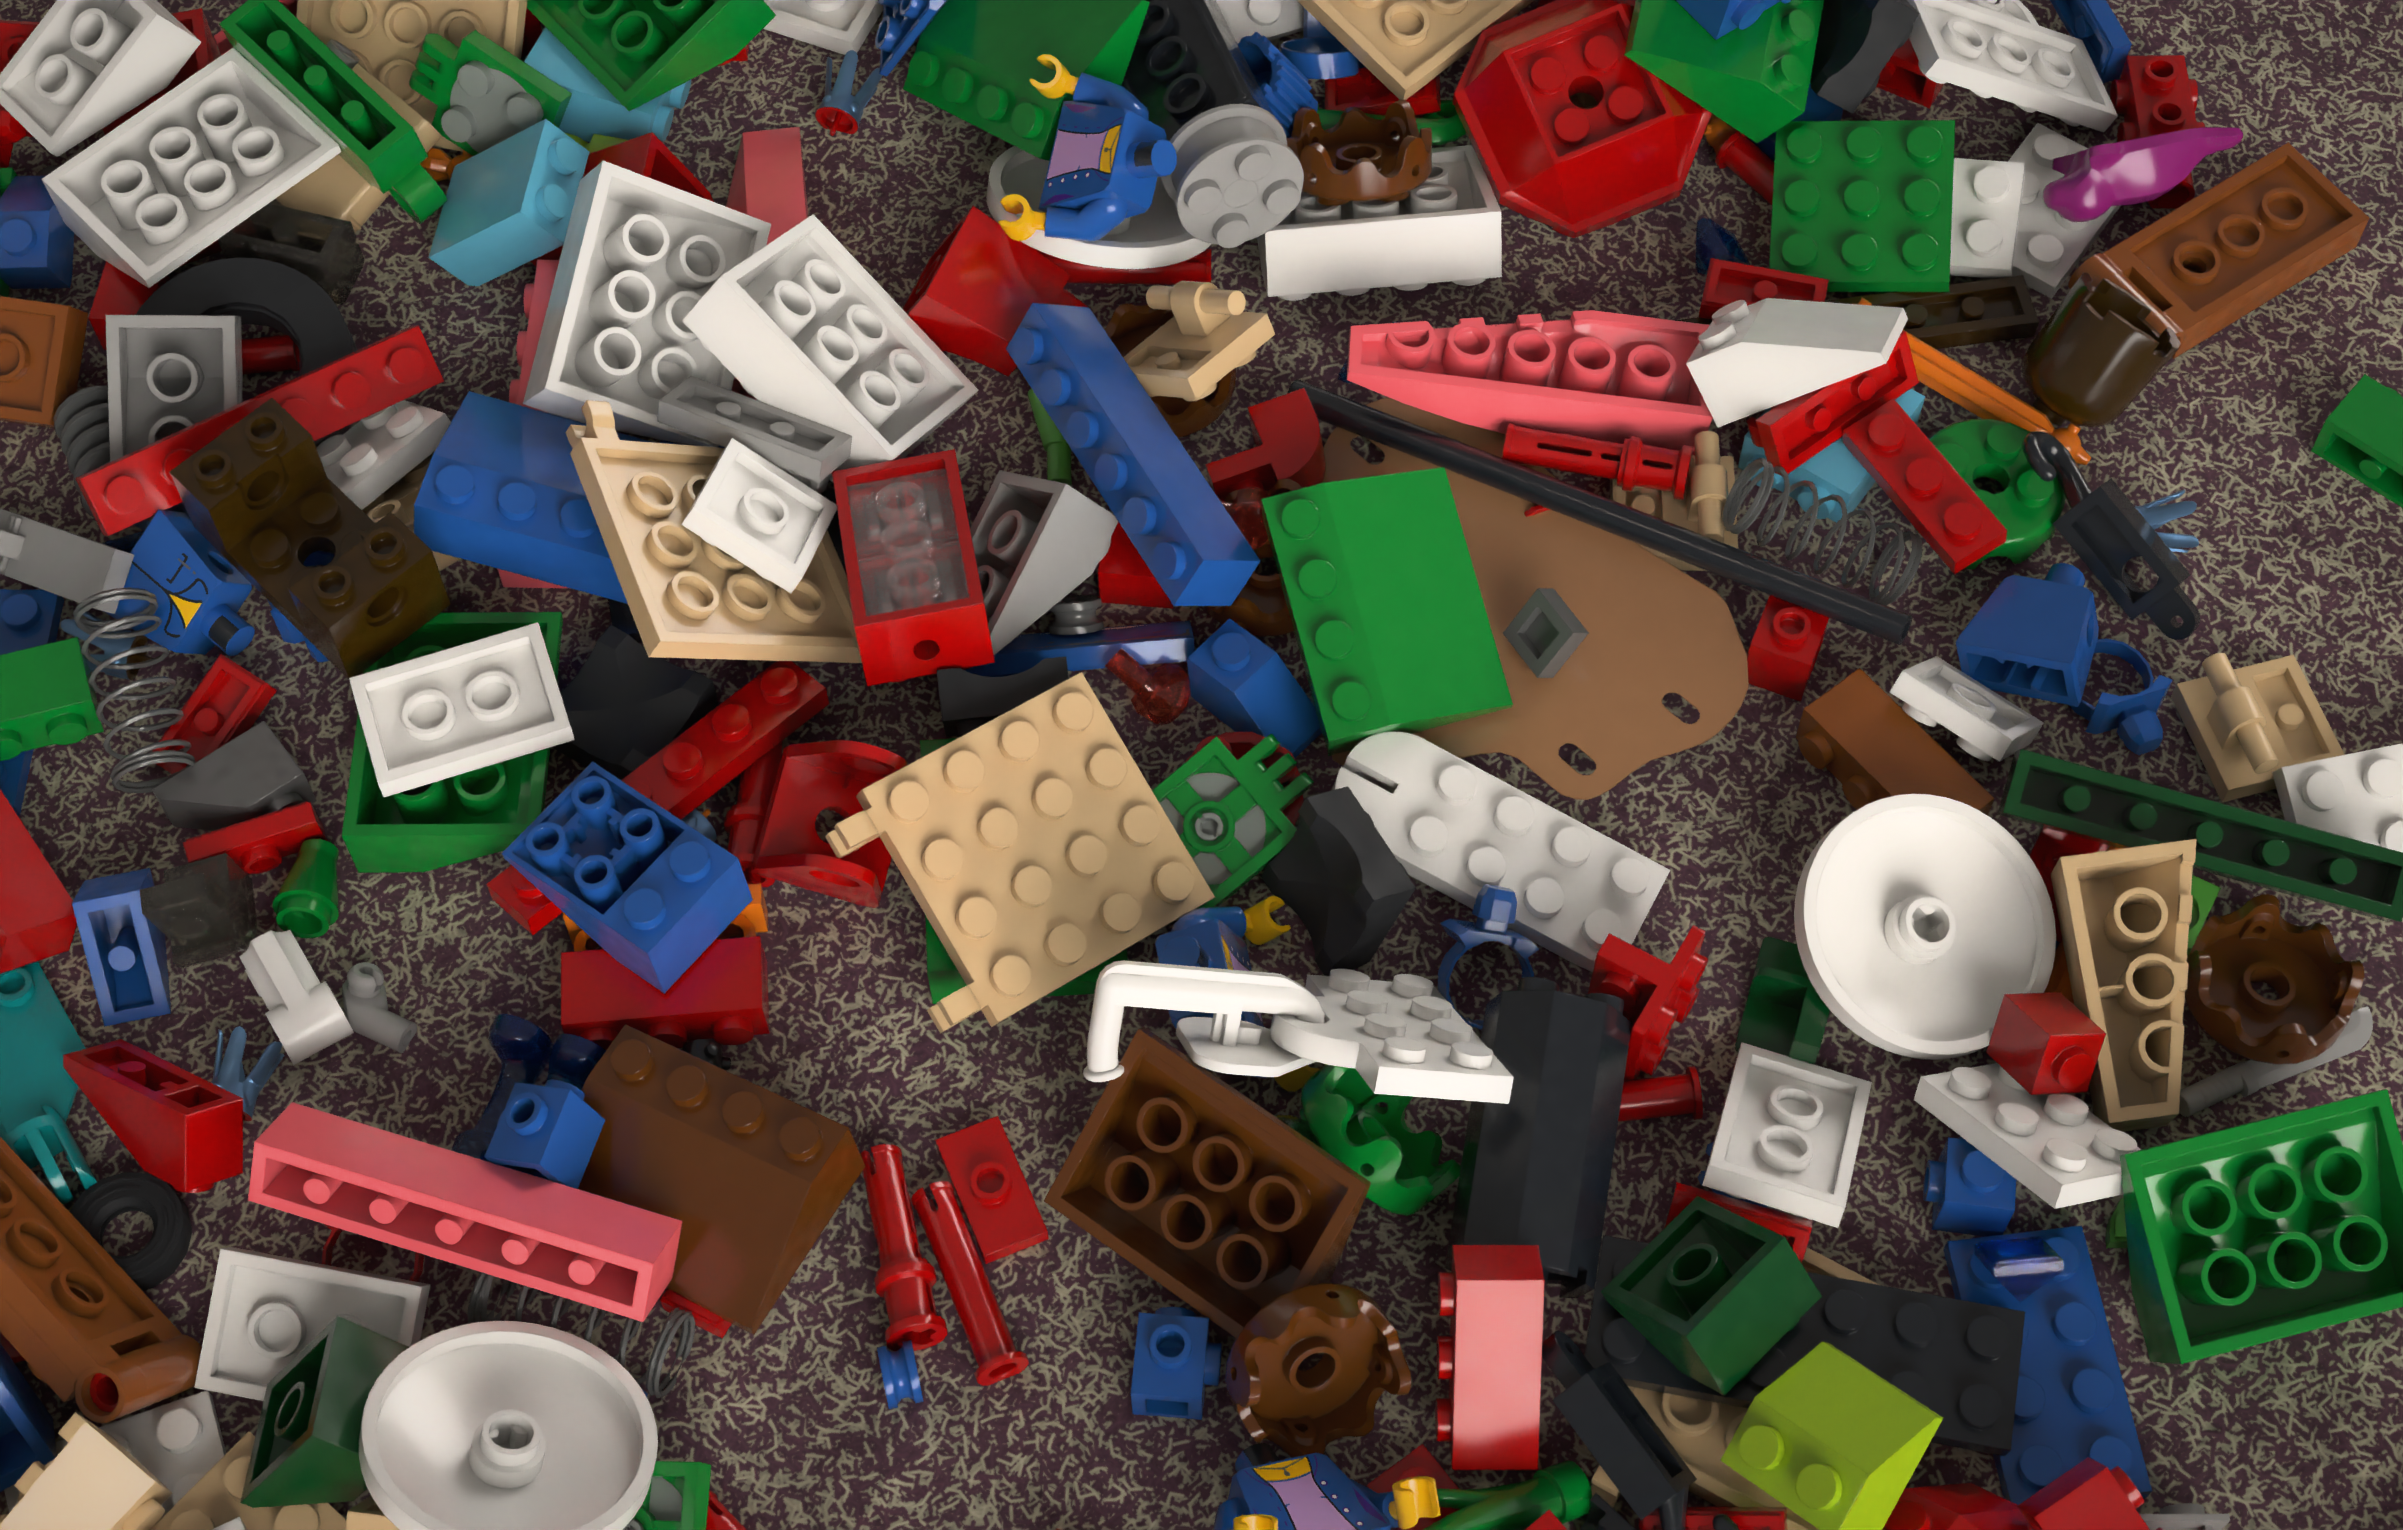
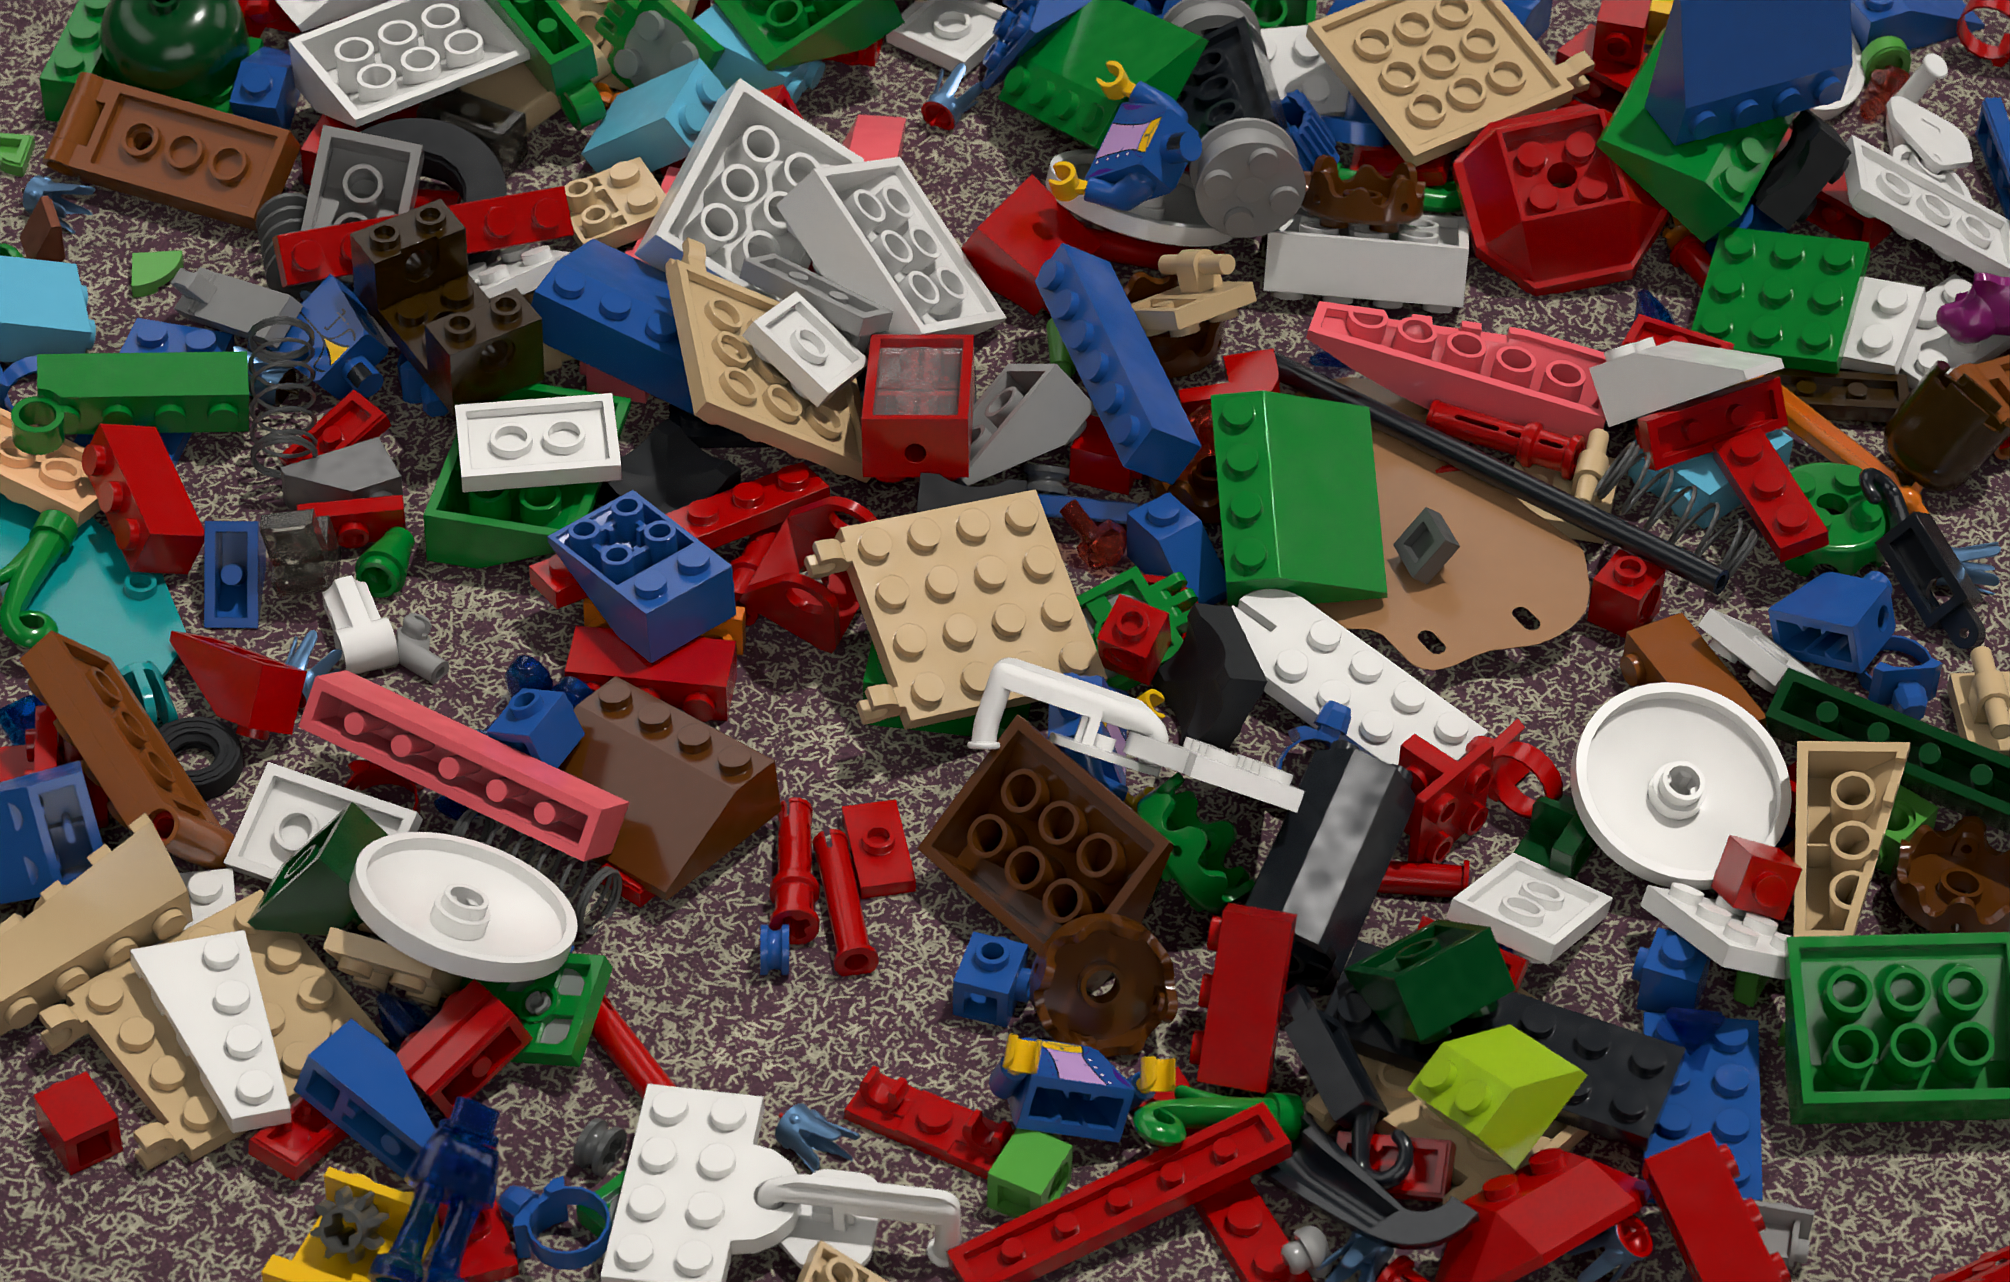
camera: 10 degrees right, 15 degrees down
(482, 331) = (614, 204): none -> tan plate
(1238, 845) = (1134, 639): none -> red brick
(1684, 907) = (1511, 763): none -> red piece

